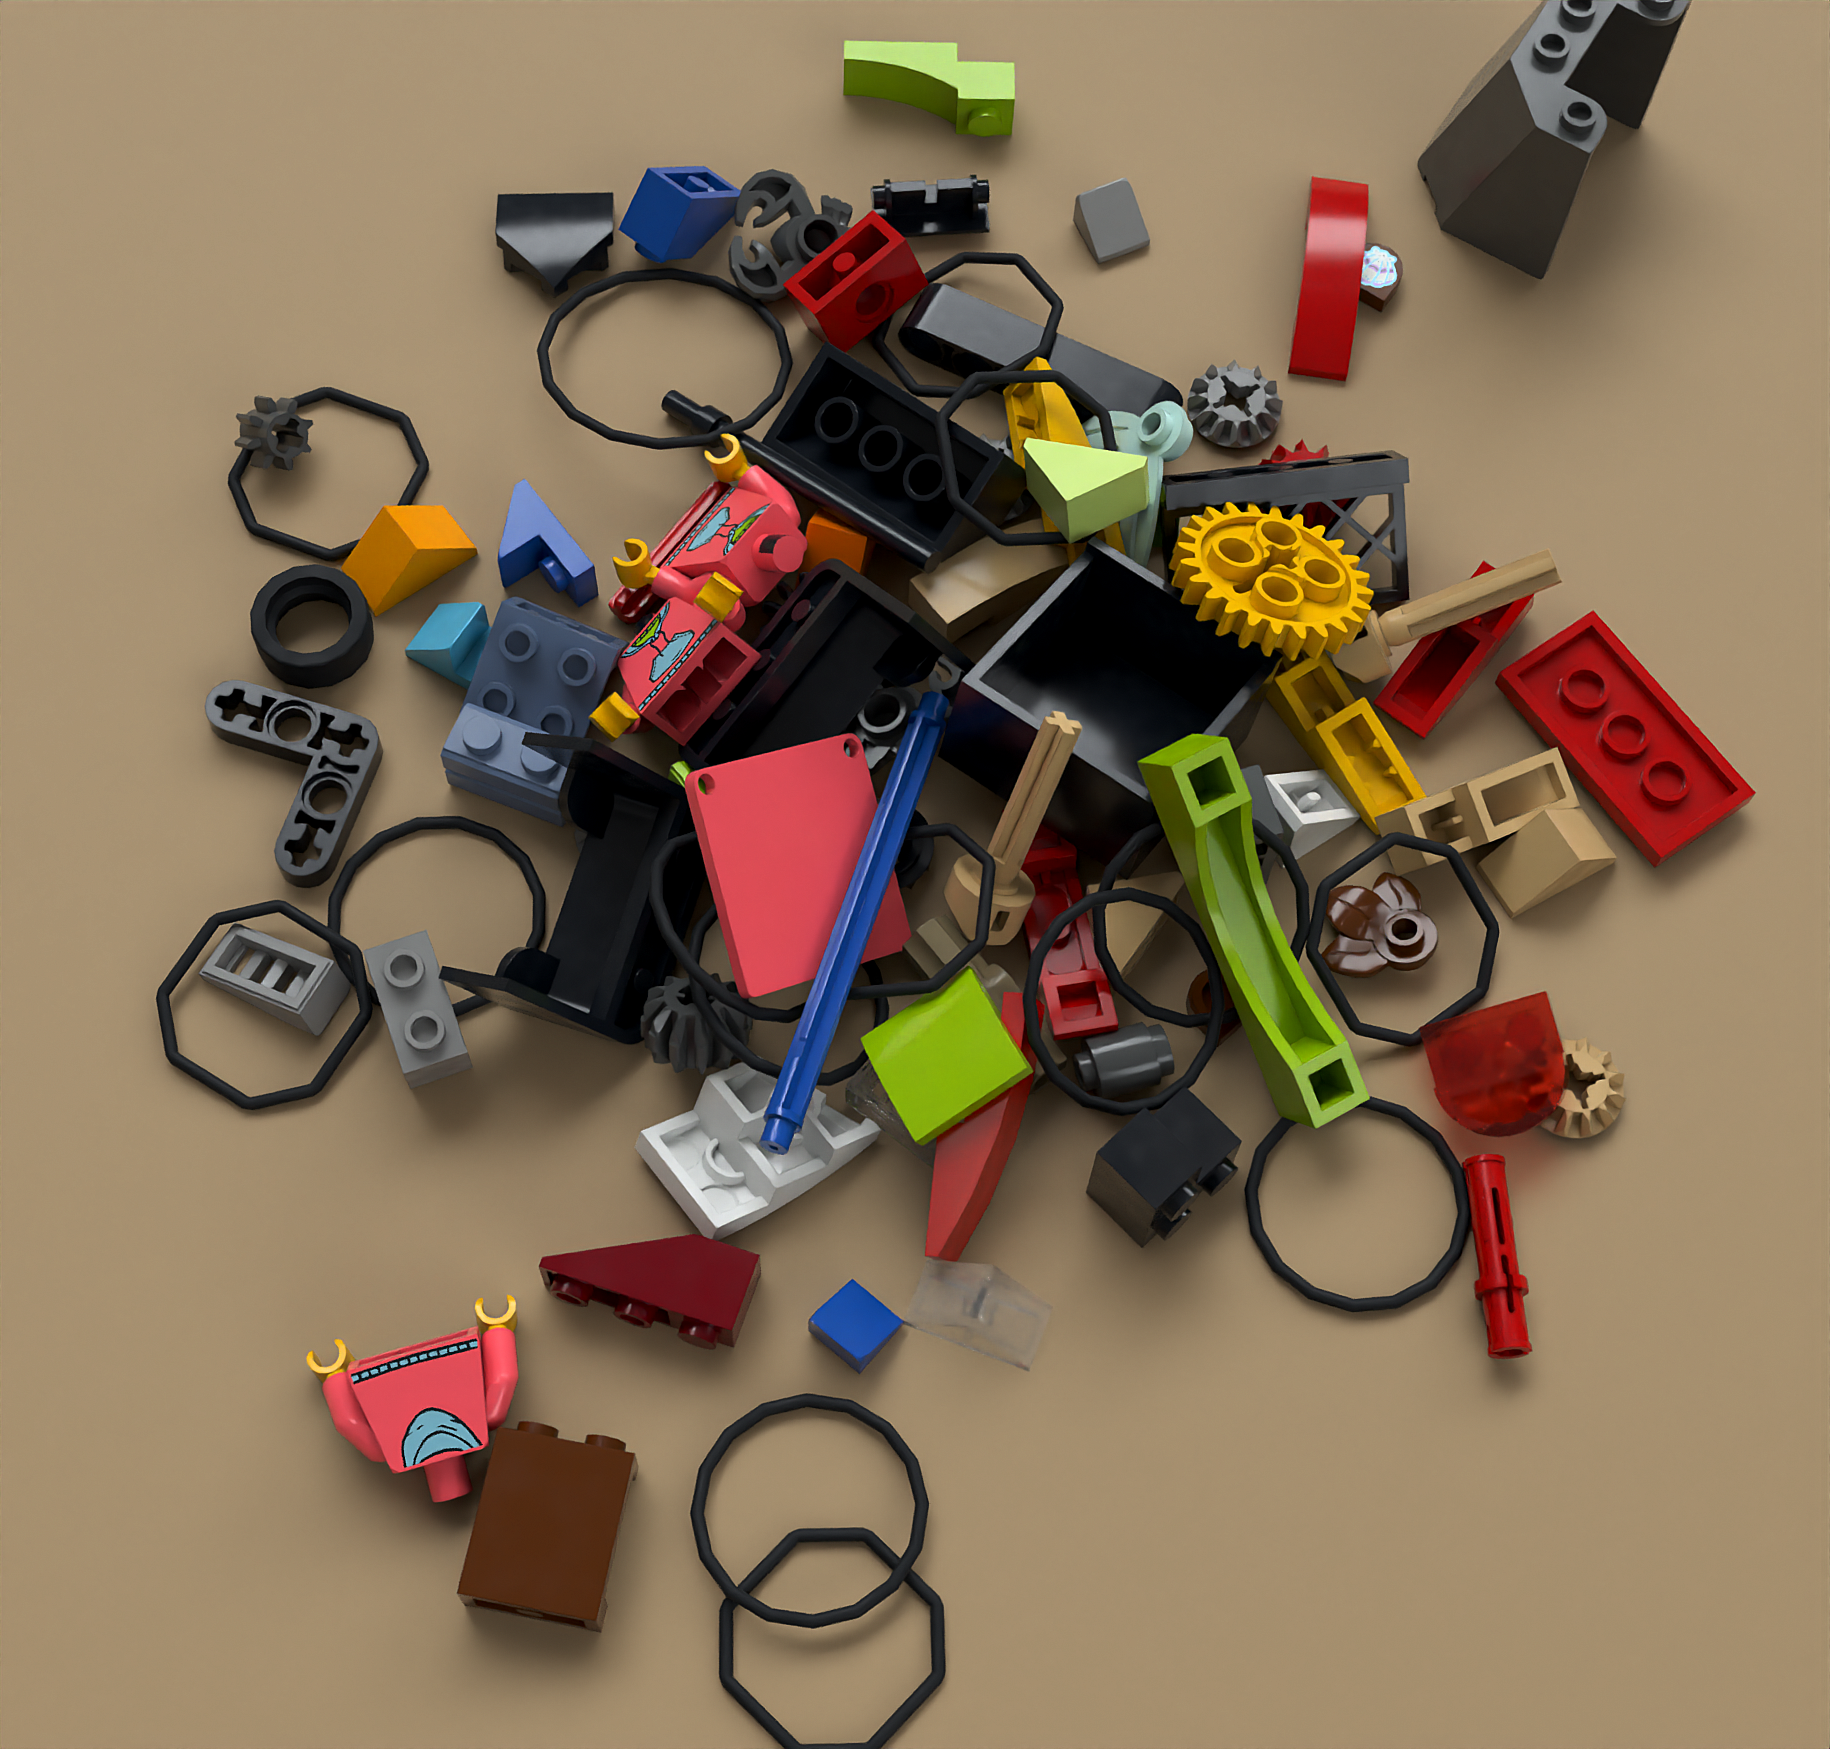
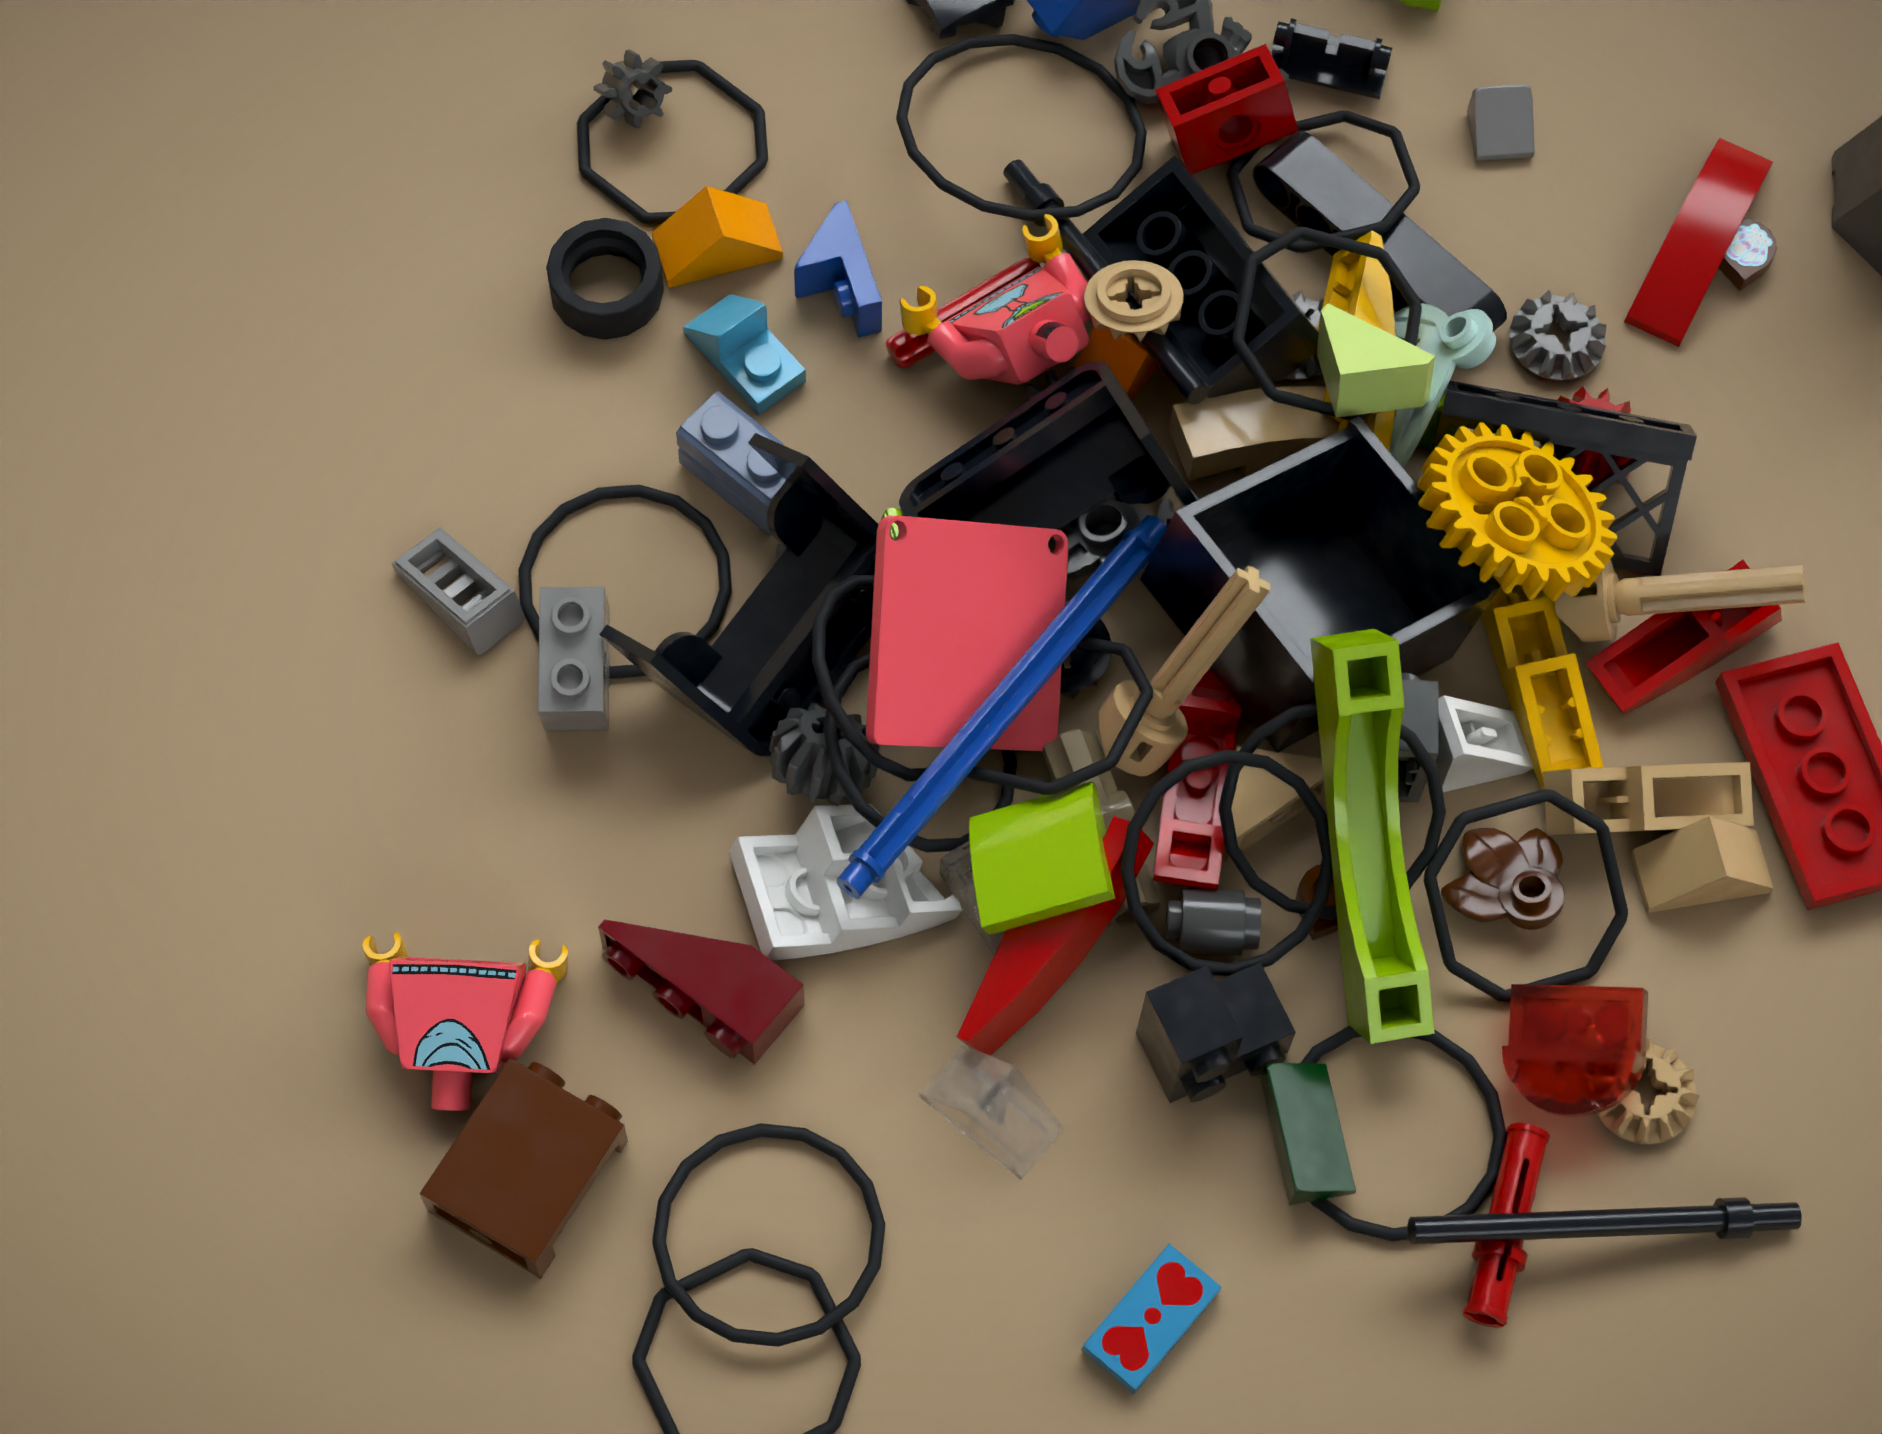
camera: 20 degrees right, 0 degrees up
(191, 954) = (388, 545): black piece -> none
(325, 768) = (572, 412): black beam -> none
(543, 668) = (803, 383): sand blue bracket -> none
(680, 665) = (926, 419): coral torso -> none
(847, 470) = (1153, 287): none -> tan gear
(854, 1325) = (871, 1081): blue slope -> none
(1202, 1462) = (1151, 1318): none -> dark azure tile
(1282, 1232) = (1307, 1131): none -> dark green slope
(1689, 1181) = (1727, 1218): none -> black bar

